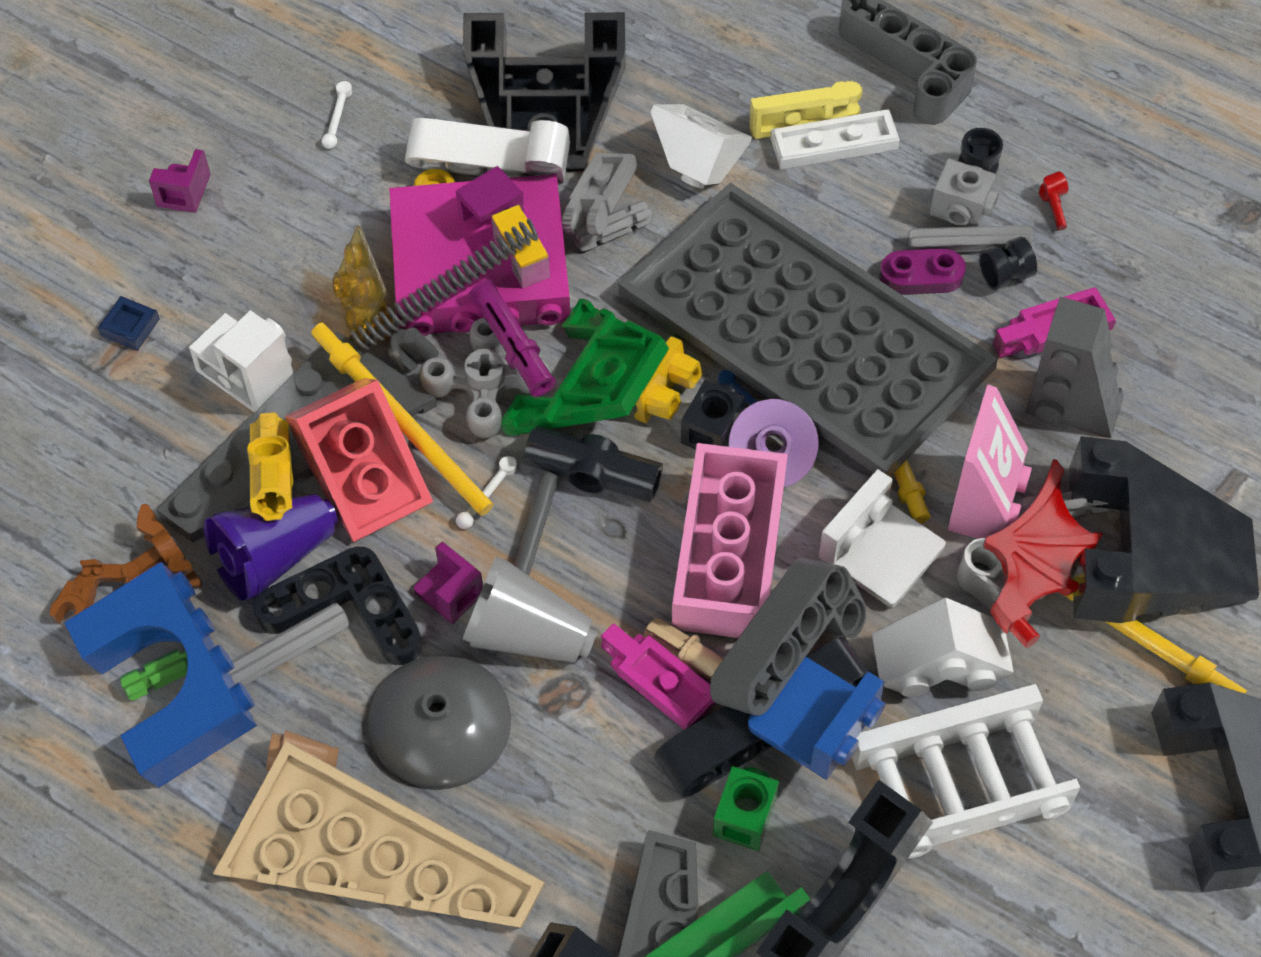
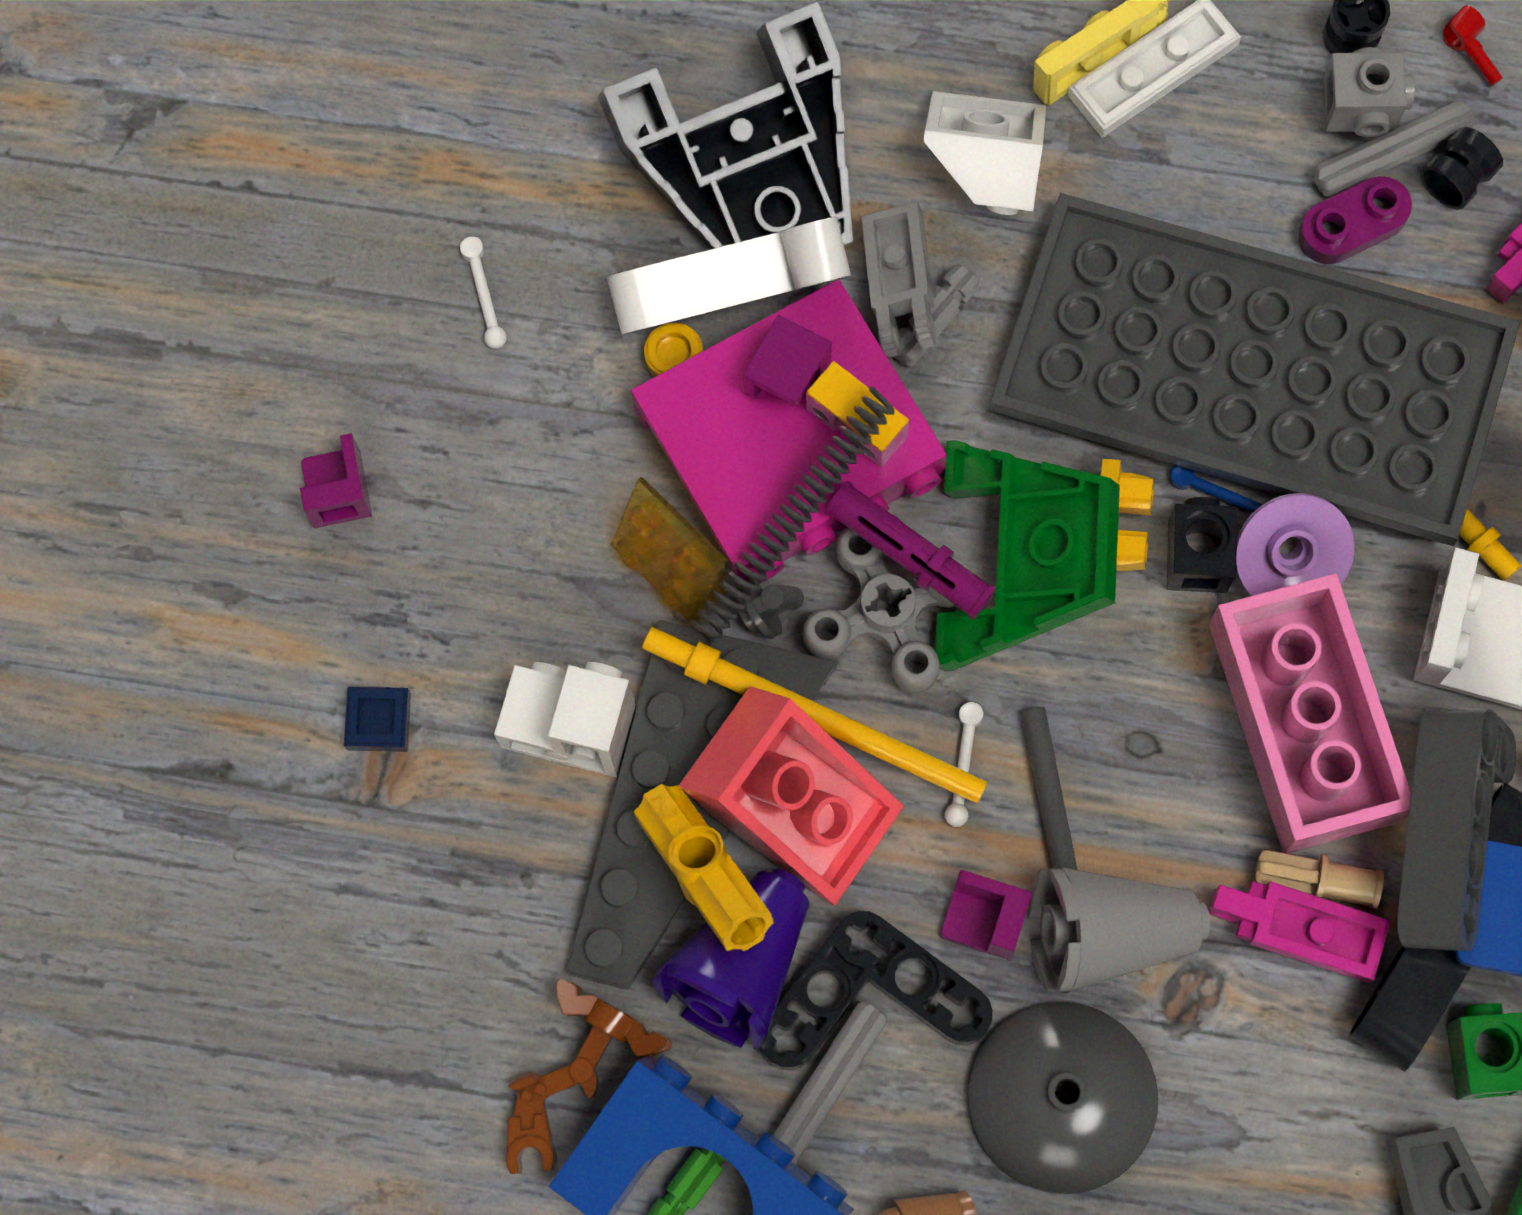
camera: 20 degrees left, 15 degrees up
(593, 463) = (1083, 672): black piece -> none

